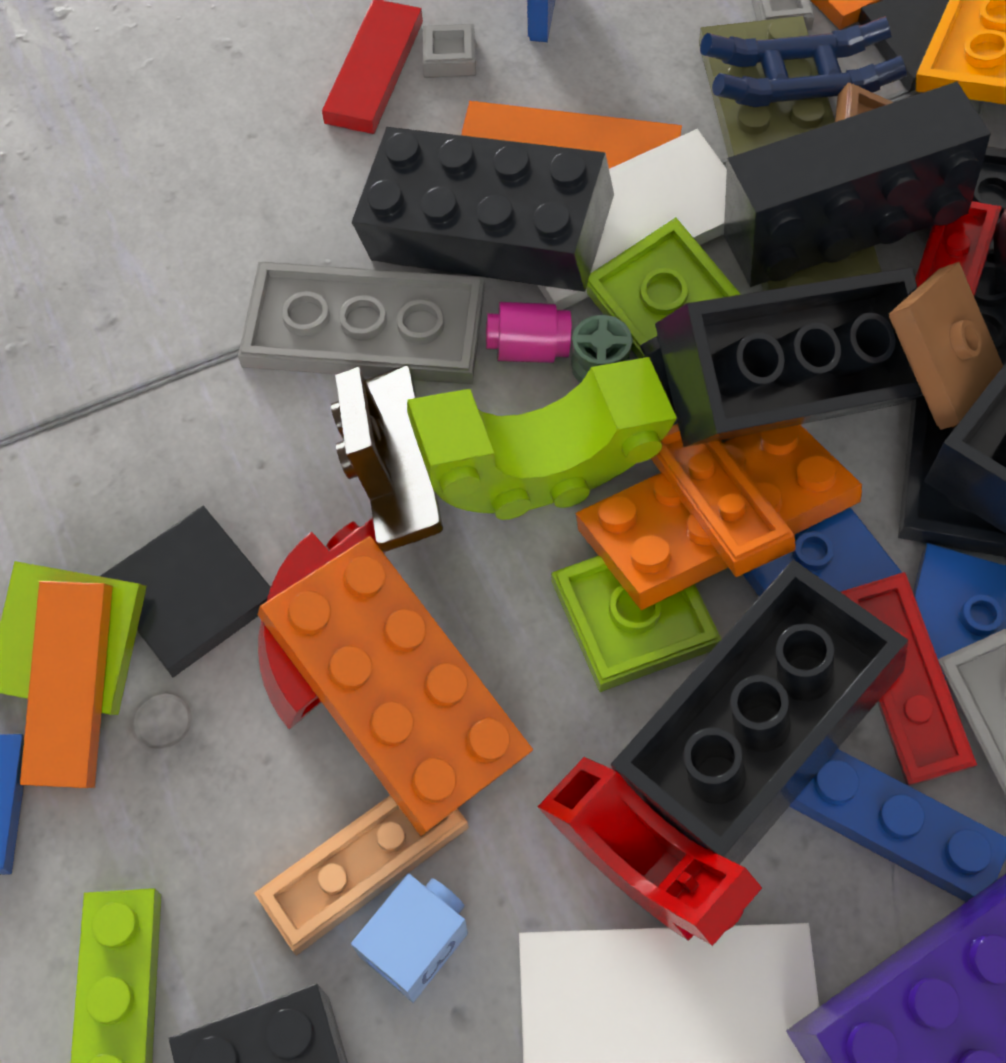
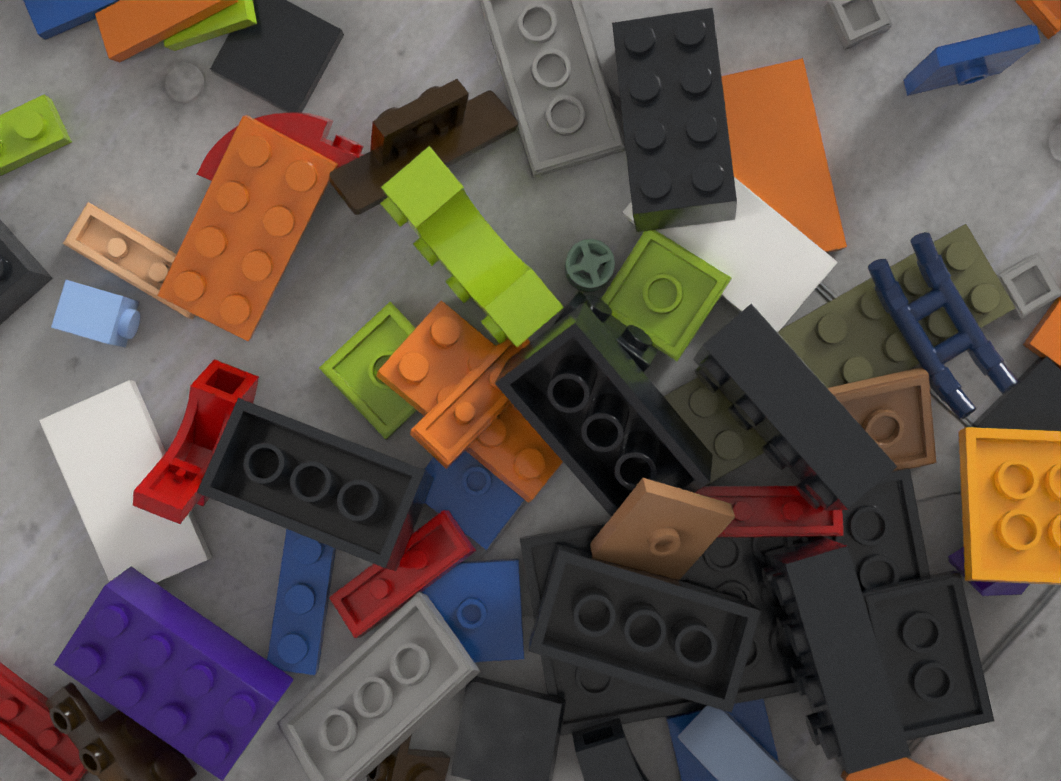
camera: 65 degrees right, 25 degrees up
(529, 332) = (584, 203): dark pink brick -> none

